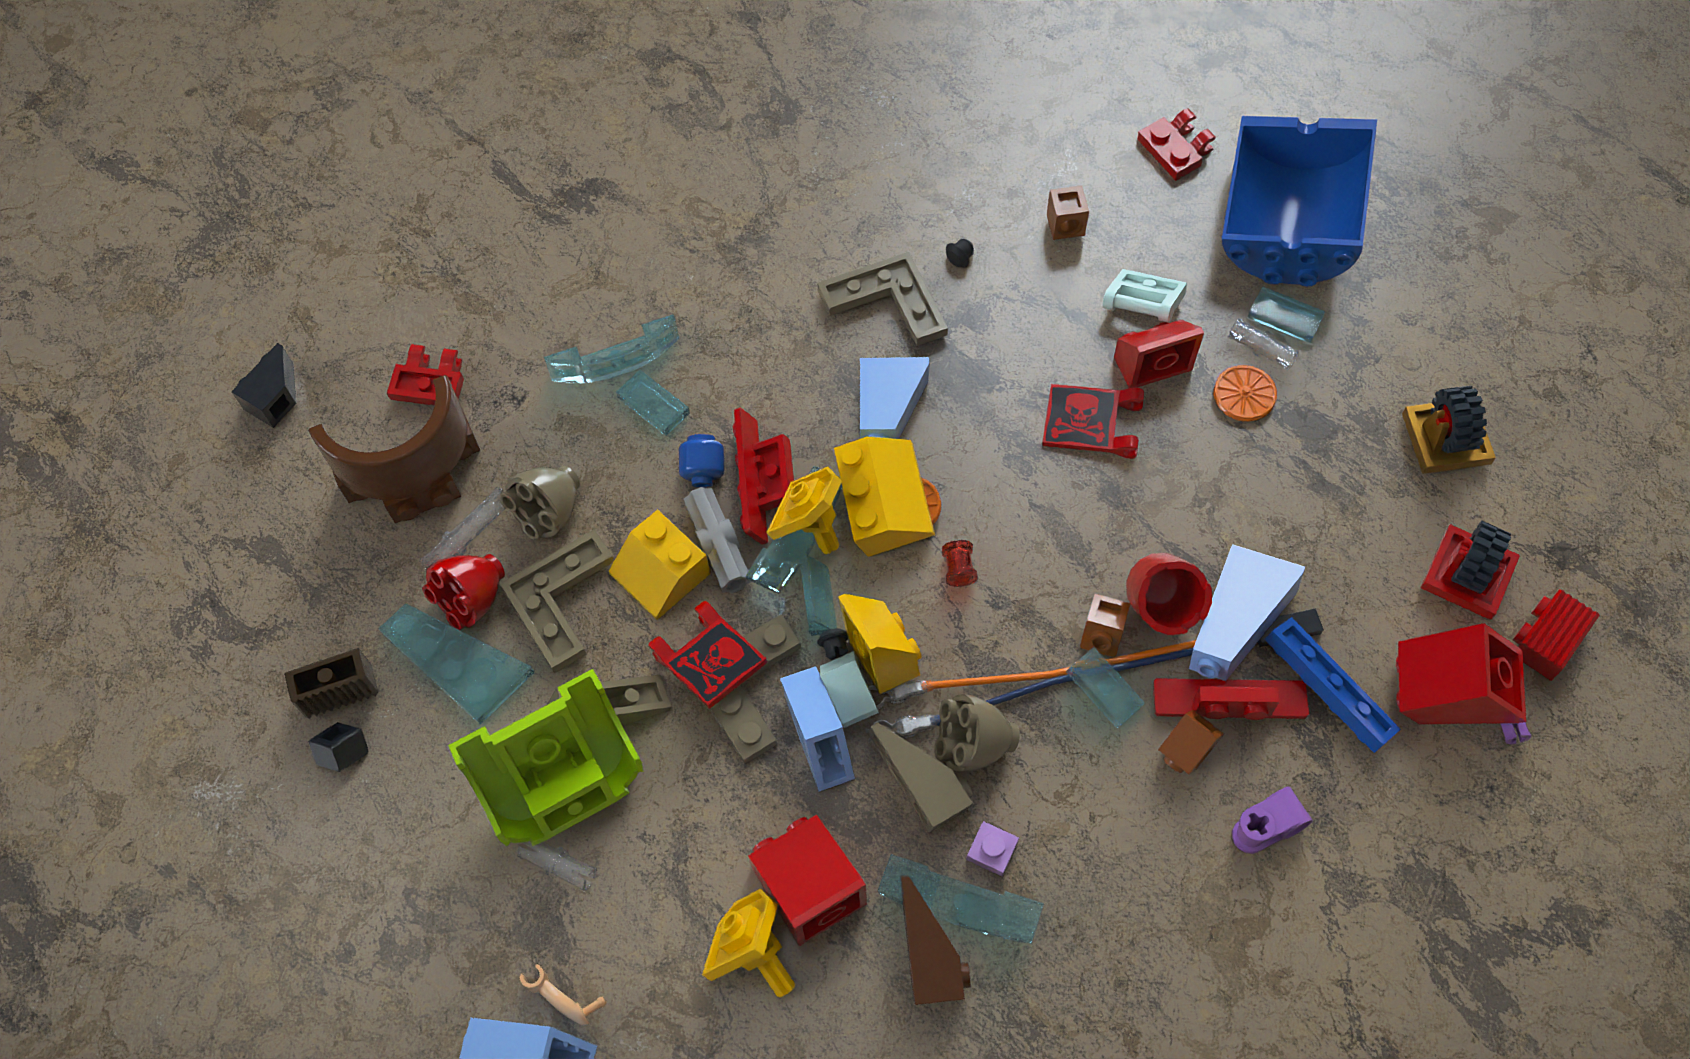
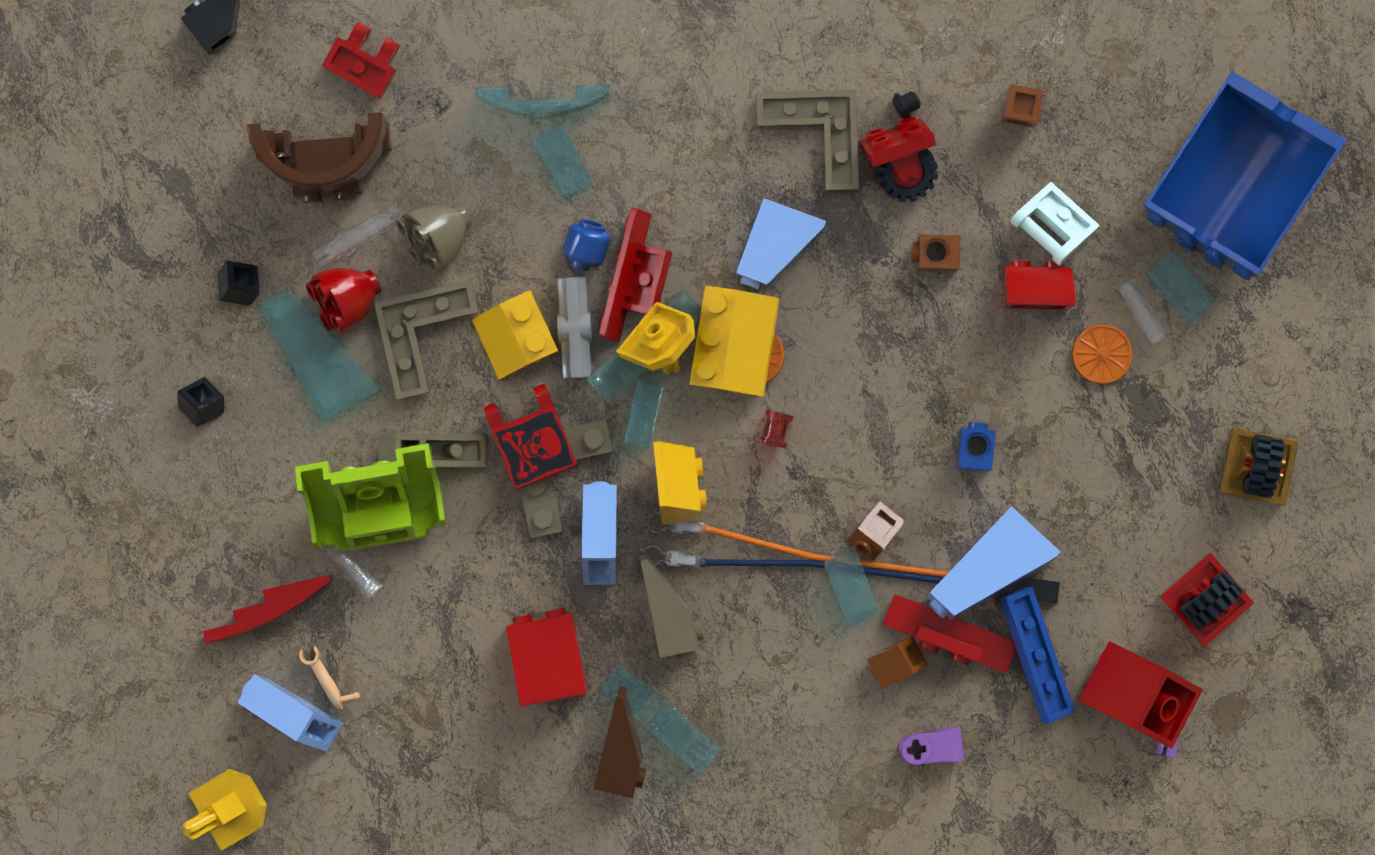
camera: 15 degrees right, 25 degrees up
(331, 683) = (209, 347): dark brown brick -> none
(351, 616) = (238, 283): none -> black slope
(481, 928) = (277, 603): none -> red slope
(746, 941) = (482, 692): yellow piece -> none
(834, 642) = (642, 461): black piece -> none
(848, 689) = (637, 508): light aqua slope -> none
(973, 733) = (723, 591): dark tan piece -> none
(977, 287) = (902, 158): none -> red plate
(992, 848) = (704, 684): lavender plate -> none
(1052, 345) = (951, 249): none -> dark orange brick
(1087, 419) = (947, 324): flag -> none
(1167, 145) = (1161, 55): plate -> none
(1168, 524) = (965, 459): none -> blue brick
(1168, 593) = (933, 532): red cylinder -> none
(1554, 633) = (1243, 680): red brick -> none

